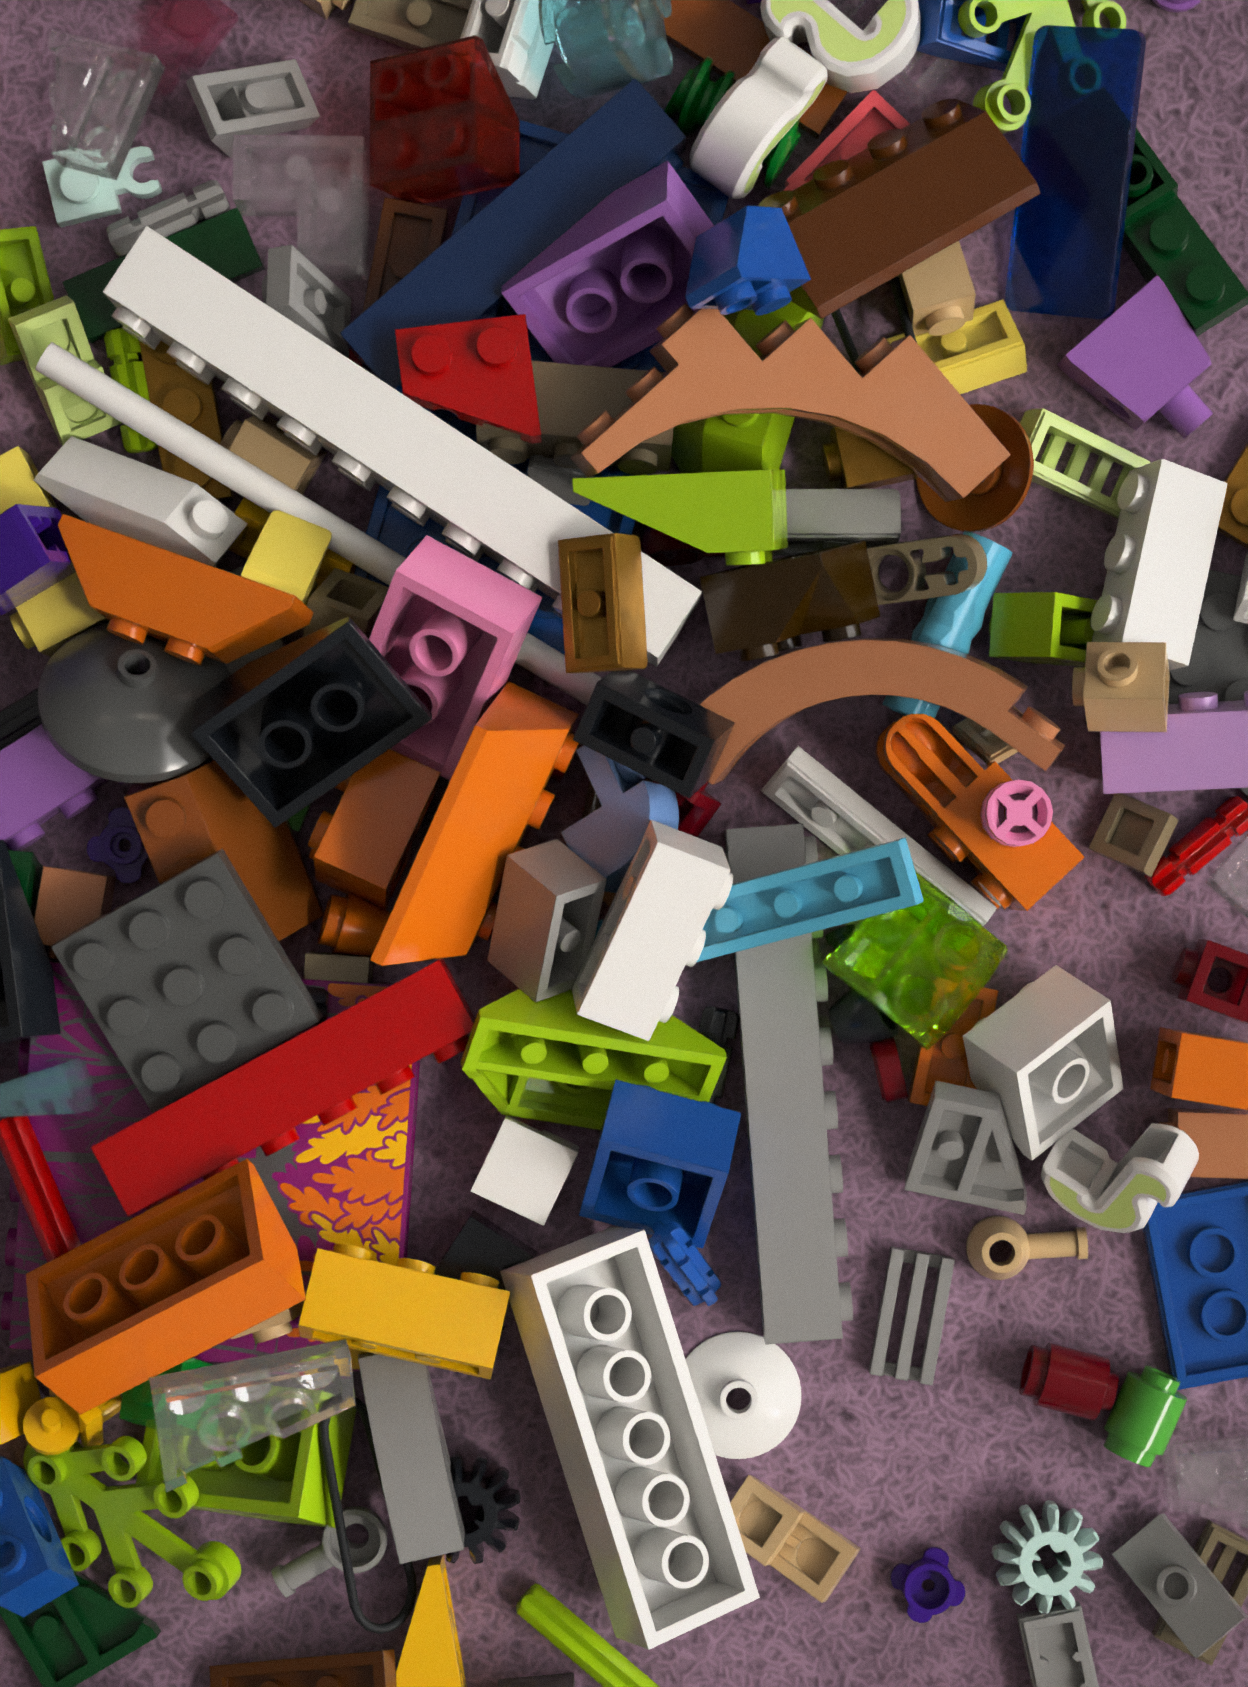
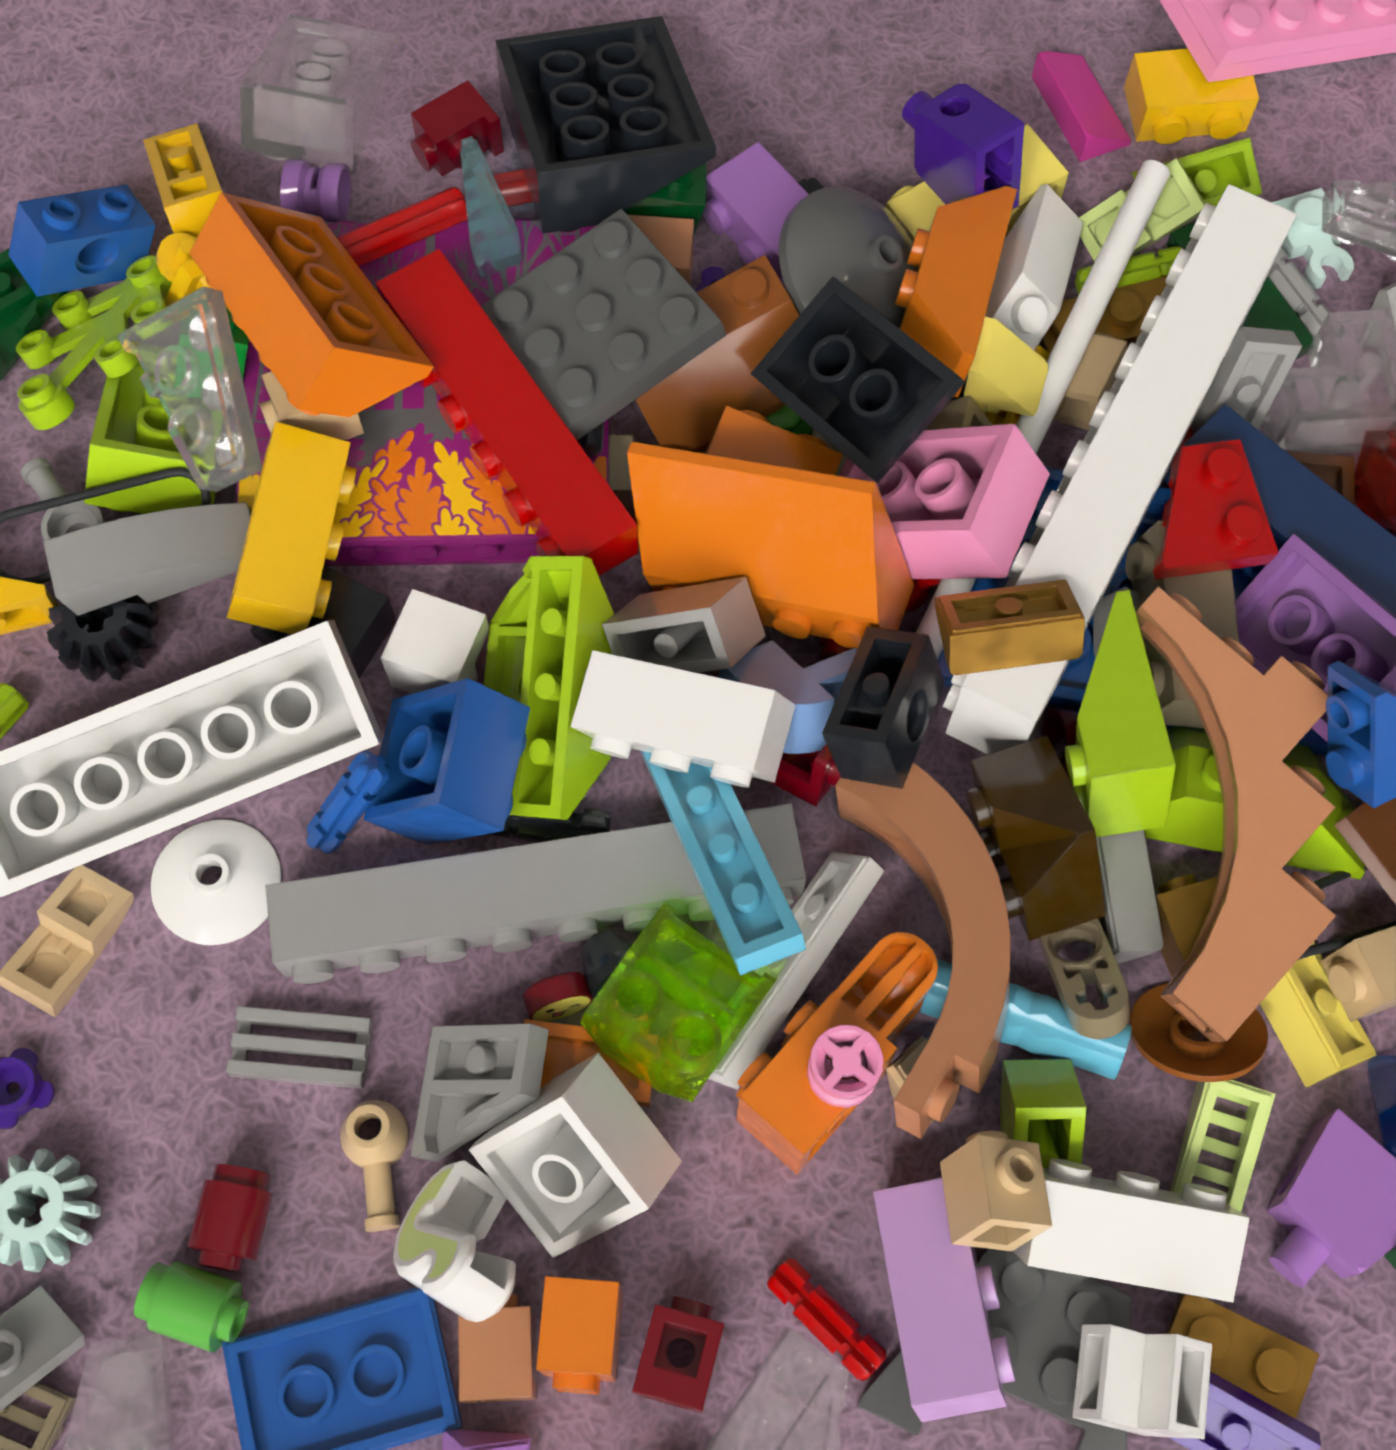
camera: 80 degrees right, 20 degrees down
(1133, 834) = (831, 1239): dark tan tile -> none

